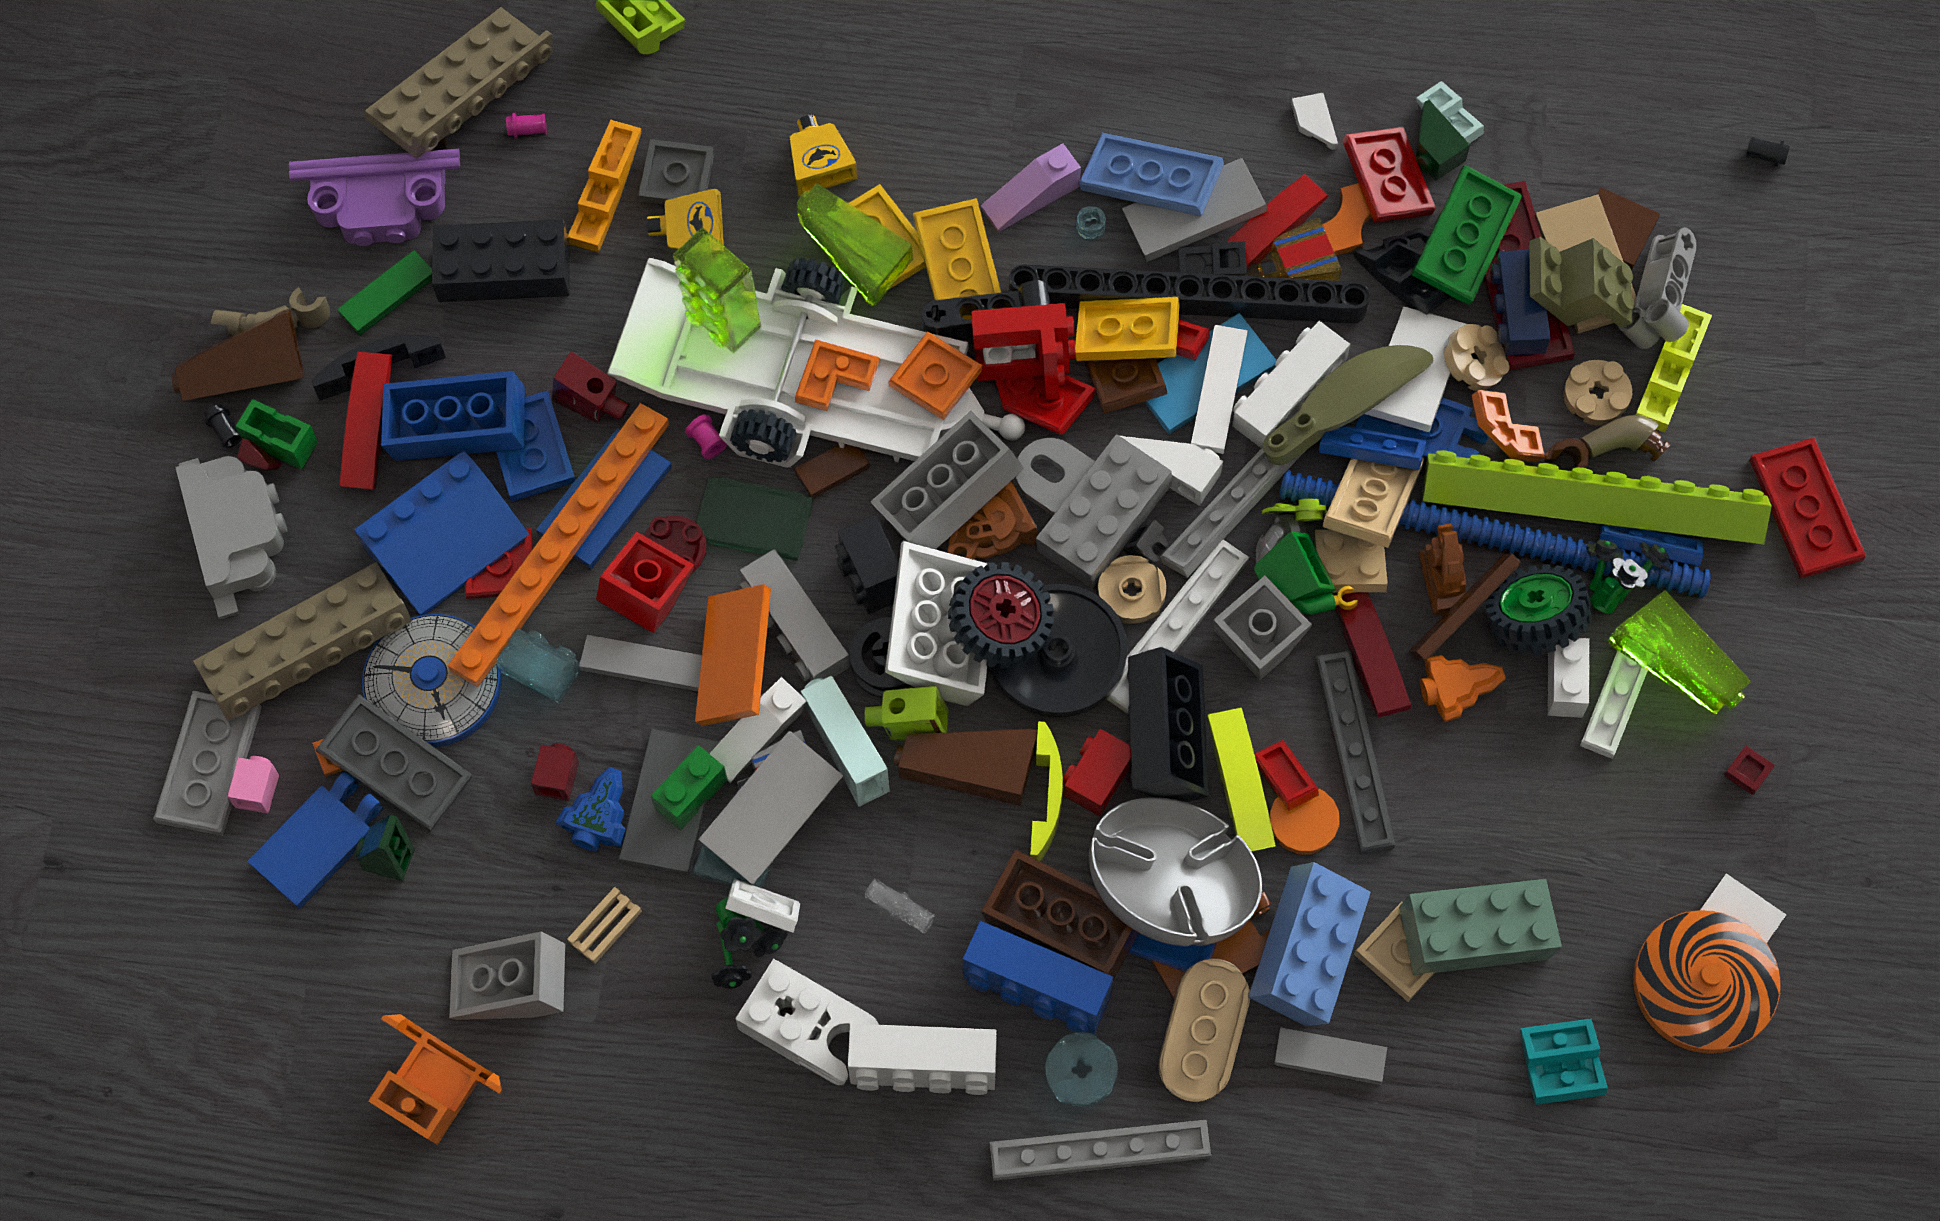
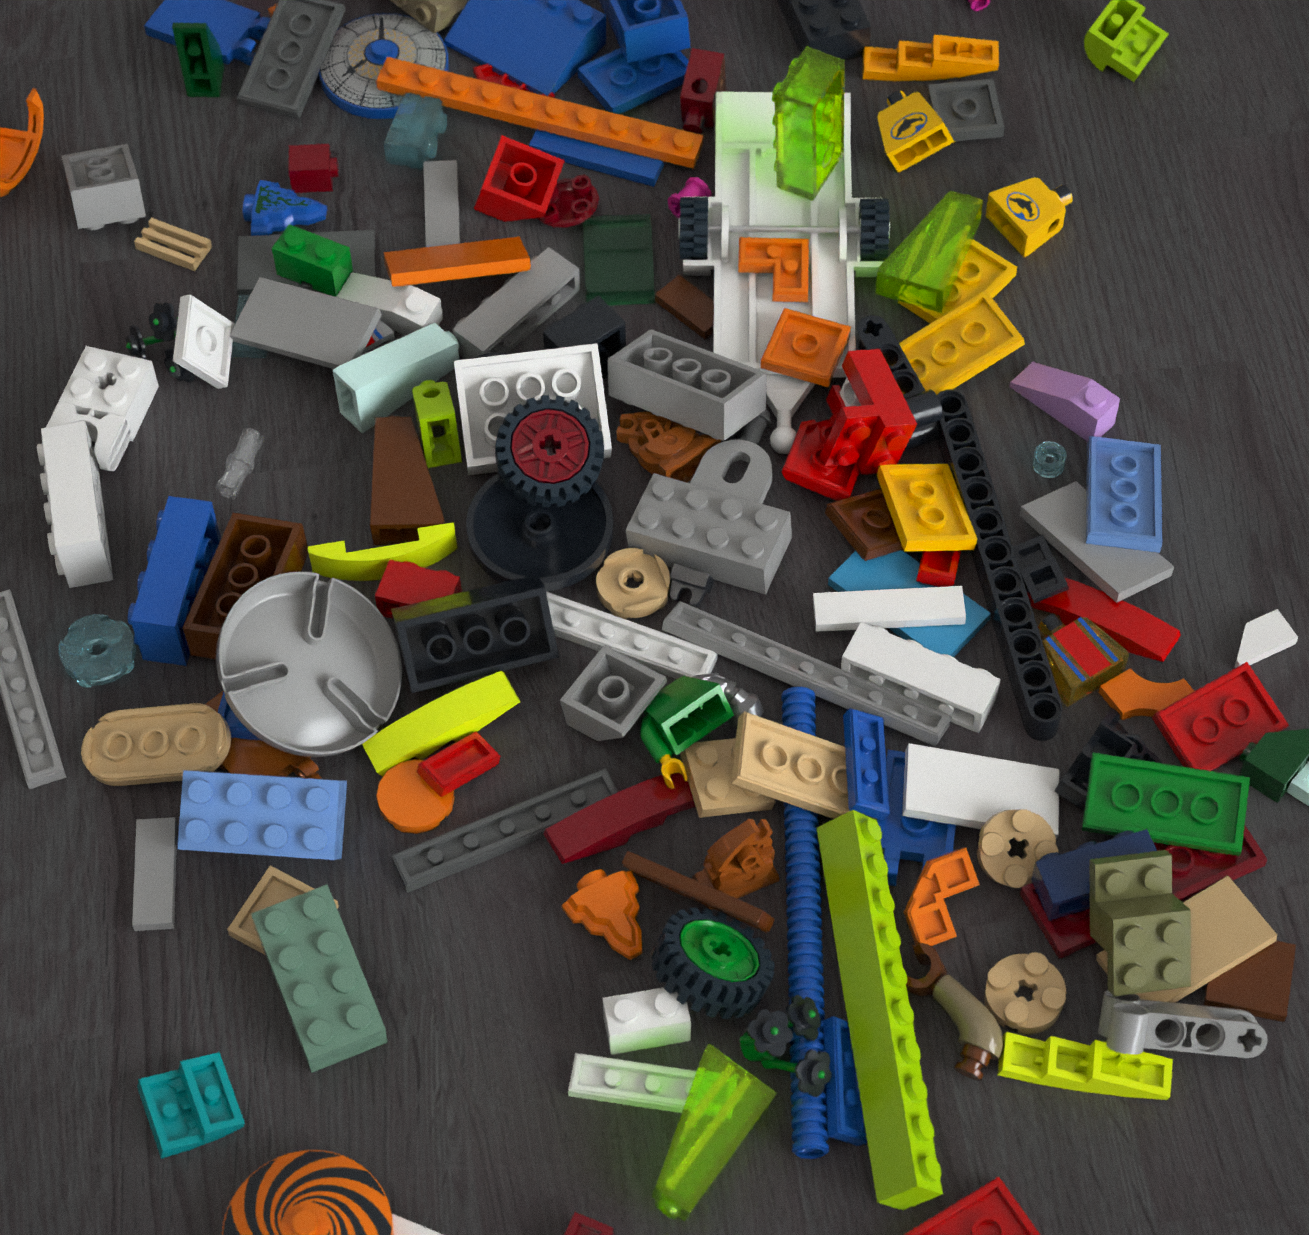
camera: 75 degrees right, 10 degrees down
(1192, 468) = (786, 596): white slope -> none
(1306, 511) = (764, 701): lime plate -> none
(1345, 396) = (919, 723): olive plant -> none

